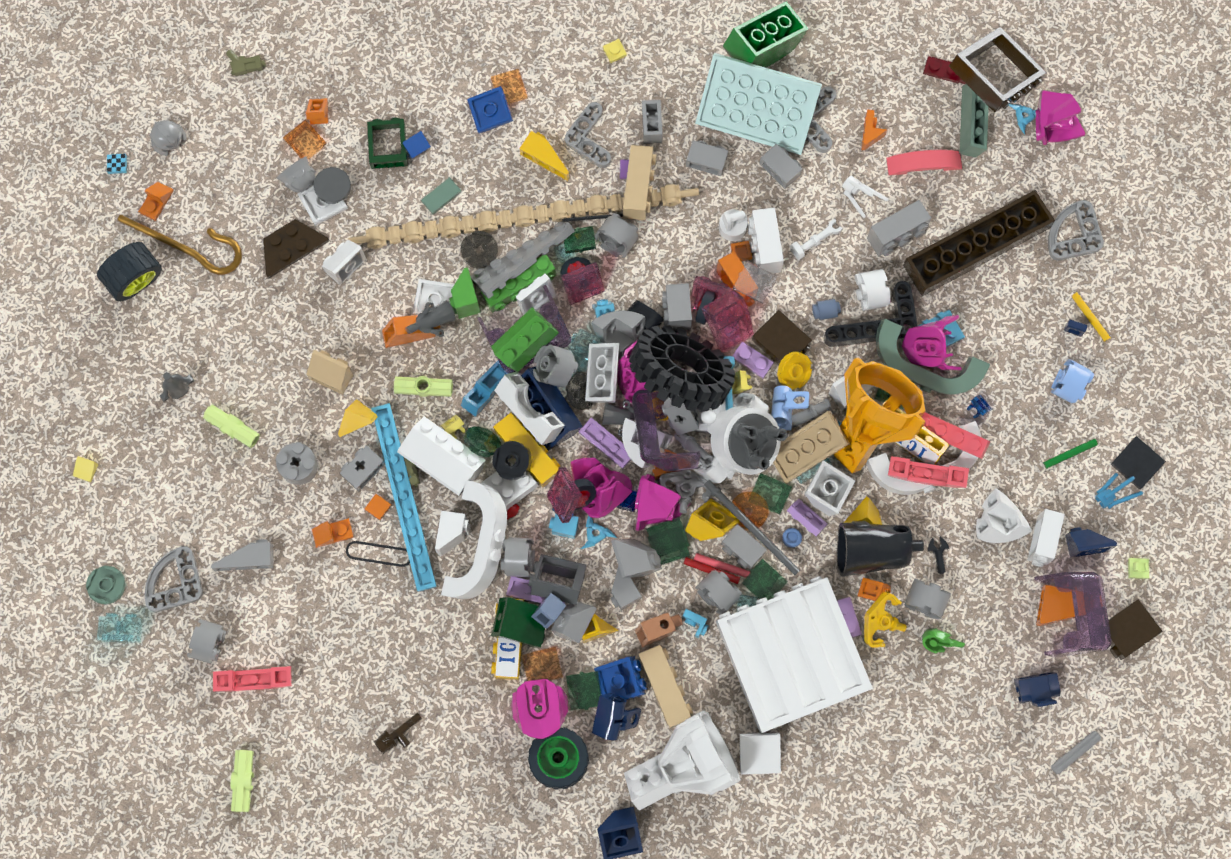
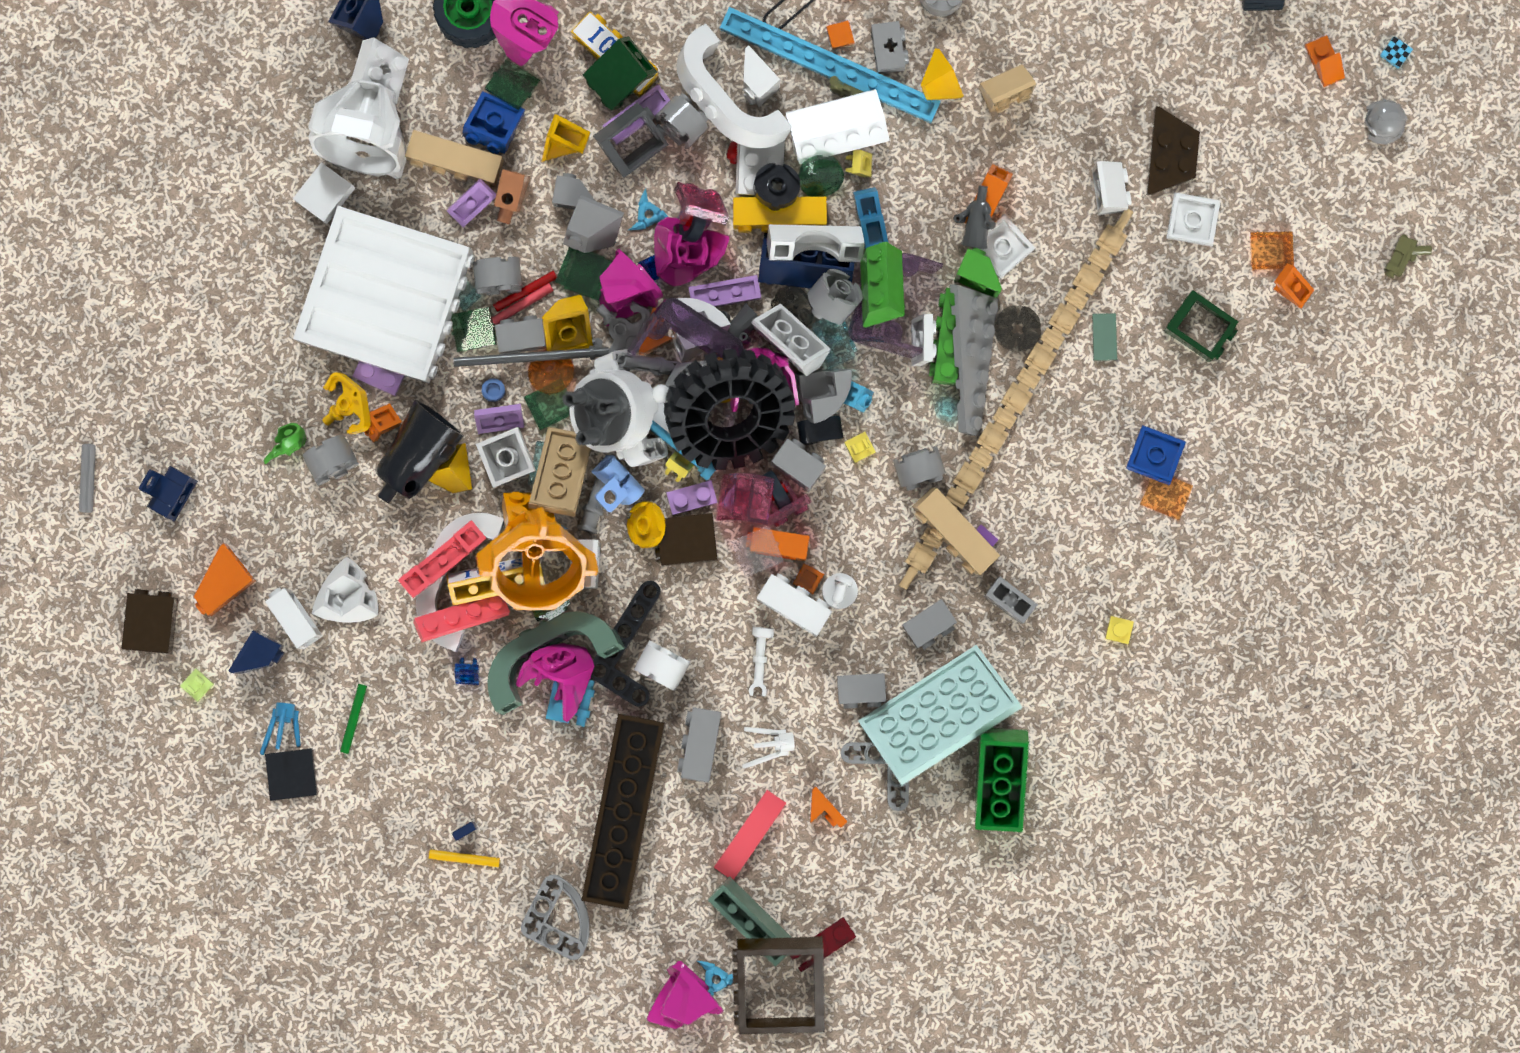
camera: 125 degrees right, 10 degrees up
(193, 253) = (1246, 53): pearl gold piece -> none
(298, 176) = (1235, 212): light grey helmet -> none
(332, 185) = (1199, 238): dark grey tile -> none
(416, 144) = (1175, 352): blue panel -> none
(435, 387) = (911, 176): yellowish green piece -> none
(539, 151) = (1067, 468): yellow slope -> none
(542, 665) = (567, 66): clear orange piece -> none
(548, 610) = (606, 104): sand blue brick -> none
(564, 529) = (668, 188): medium azure brick -> none
(573, 621) = (579, 120): light grey slope -> none
(581, 240) = (944, 431): clear green piece -> none
(581, 279) = (906, 397): clear pink plate -> none
(583, 141) = (1049, 519): light grey beam -> none
(588, 218) = (957, 459): black piece -> none
(613, 717) = (464, 86): dark blue piece -> none
(633, 285) = (859, 447): none -> light yellow tile
(684, 650) = (471, 202): none -> lavender plate
(694, 619) = (493, 235): medium azure bracket -> none
(826, 309) = (681, 608): sand blue brick -> none
(938, 553) = (365, 512): black bar -> none
(1071, 381) = (415, 776): light blue brick -> none
(1089, 610) = (195, 593): clear purple windscreen -> none

